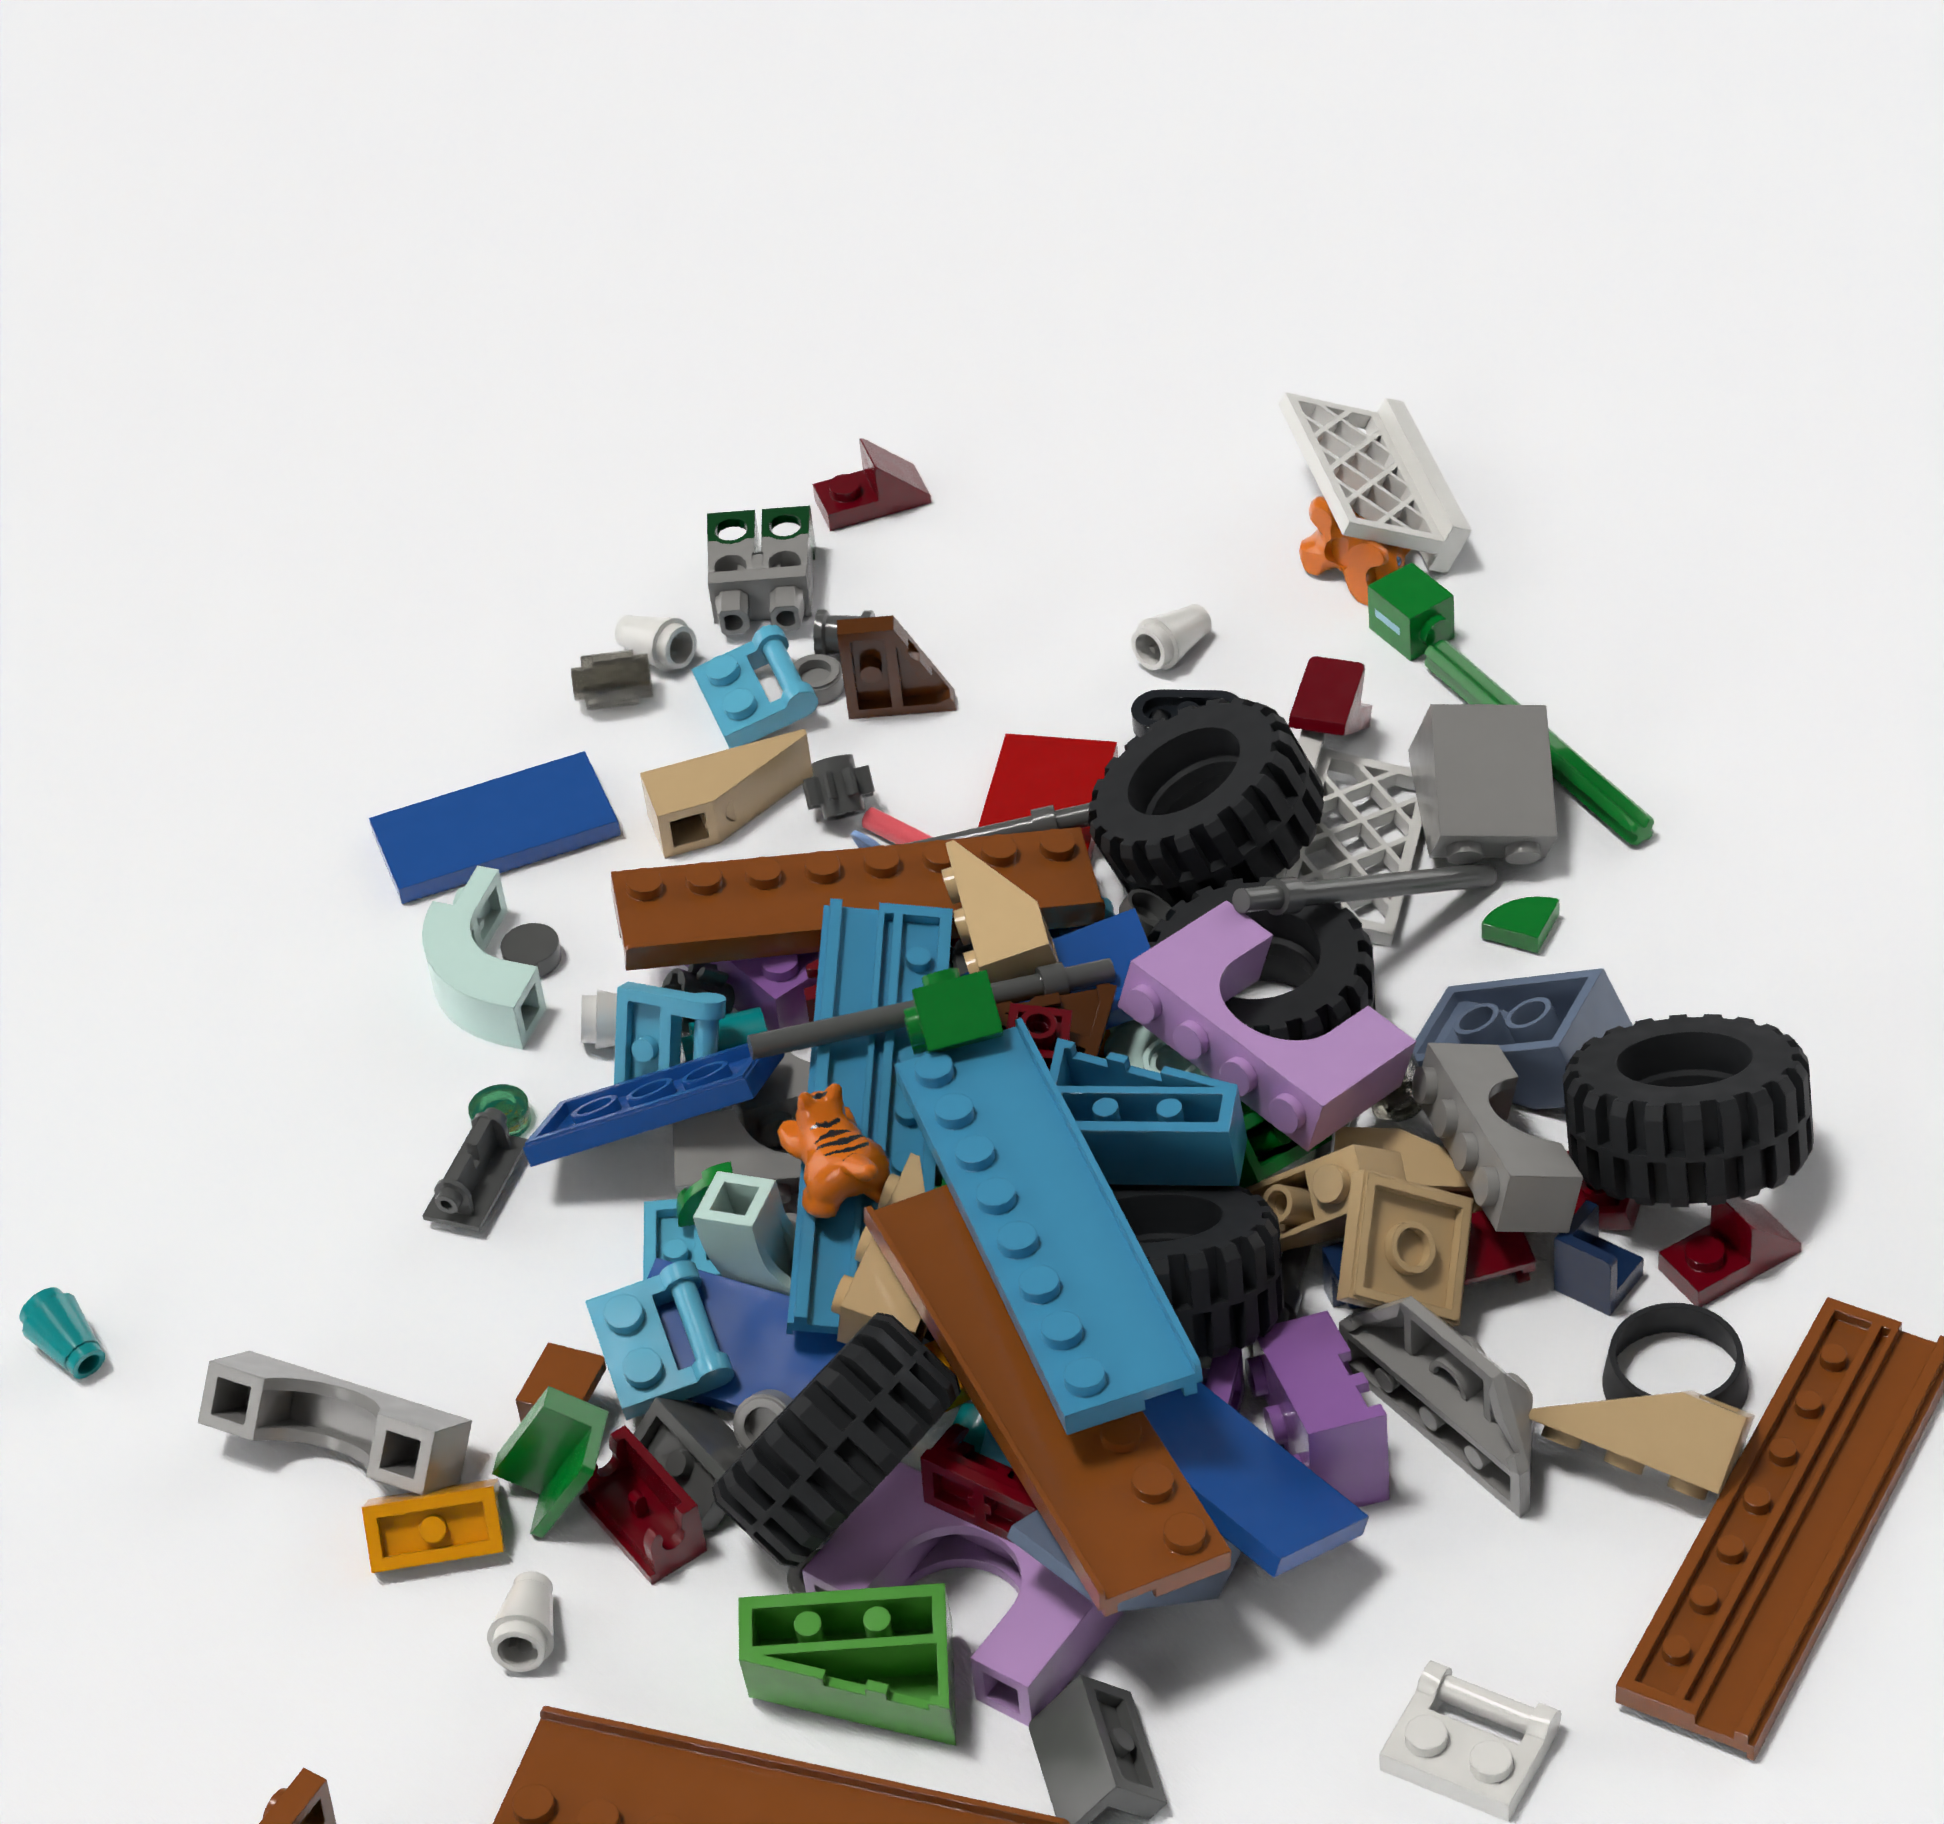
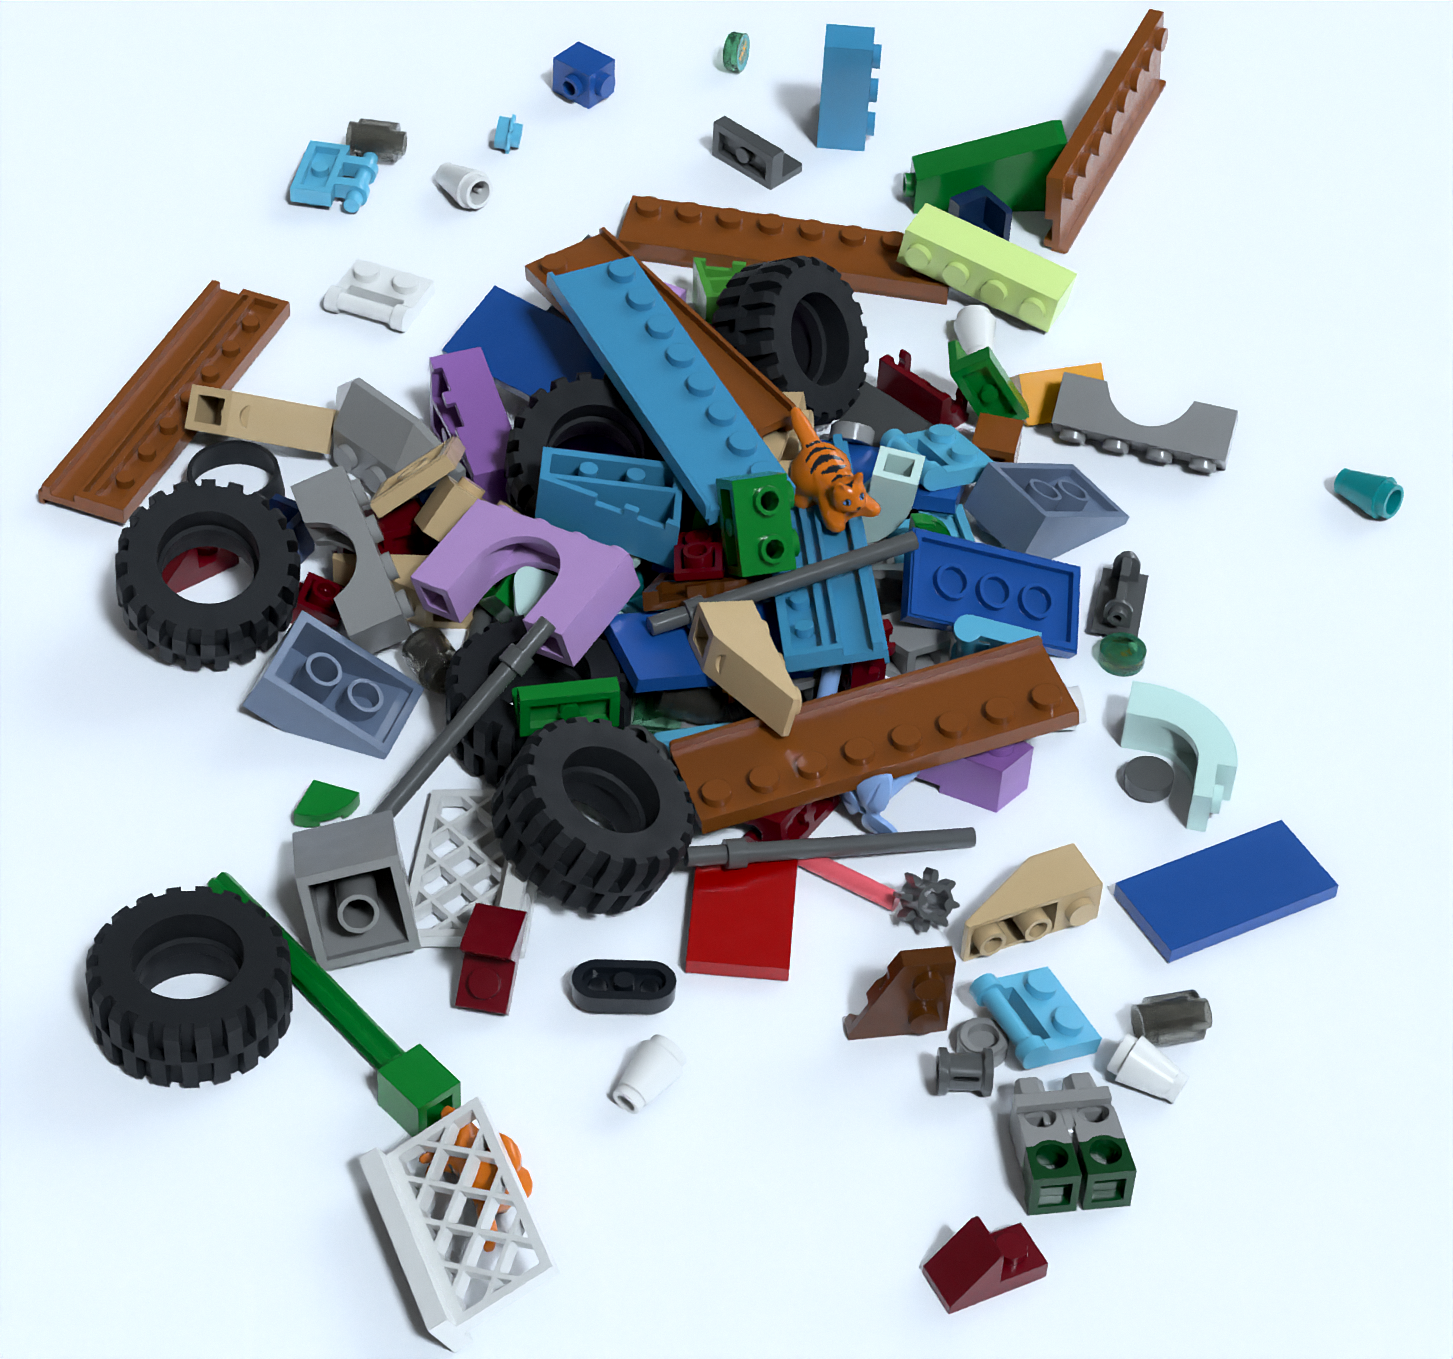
camera: 165 degrees right, 0 degrees up
(475, 1705) = (986, 267): none -> yellowish green brick
(519, 1297) = (1041, 507): none -> sand blue slope
(1210, 870) = (556, 701): none -> green panel
(1663, 635) = (194, 1036): none -> black tyre

